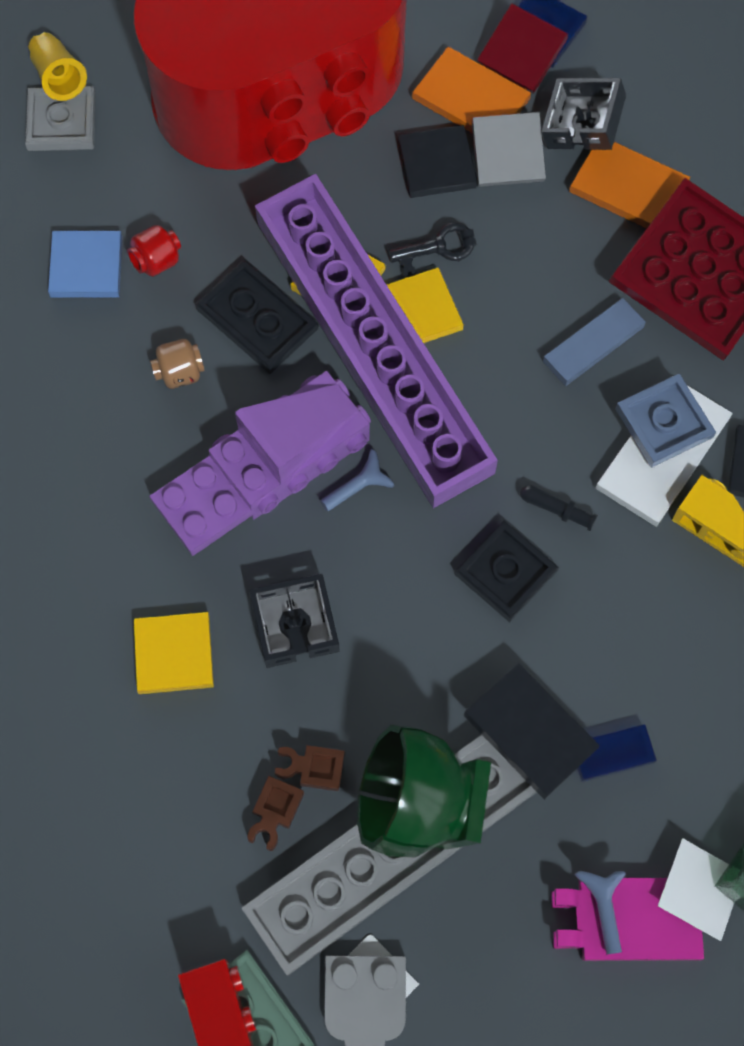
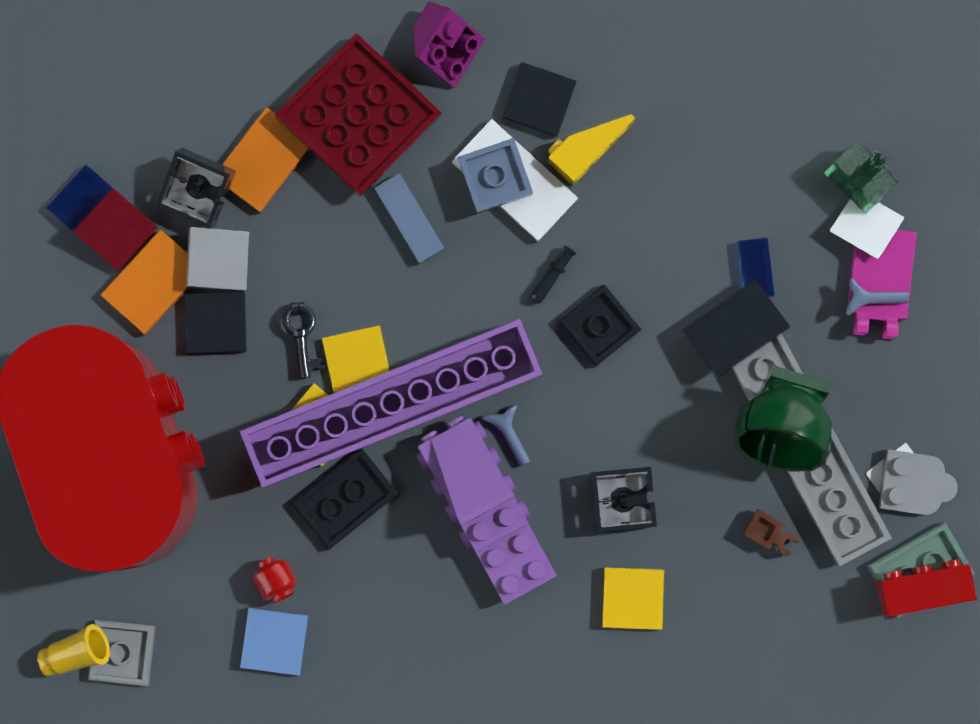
camera: 90 degrees left, 15 degrees up
(177, 363) = (384, 570): medium nougat head -> none
(318, 768) = (739, 495): copper plate -> none

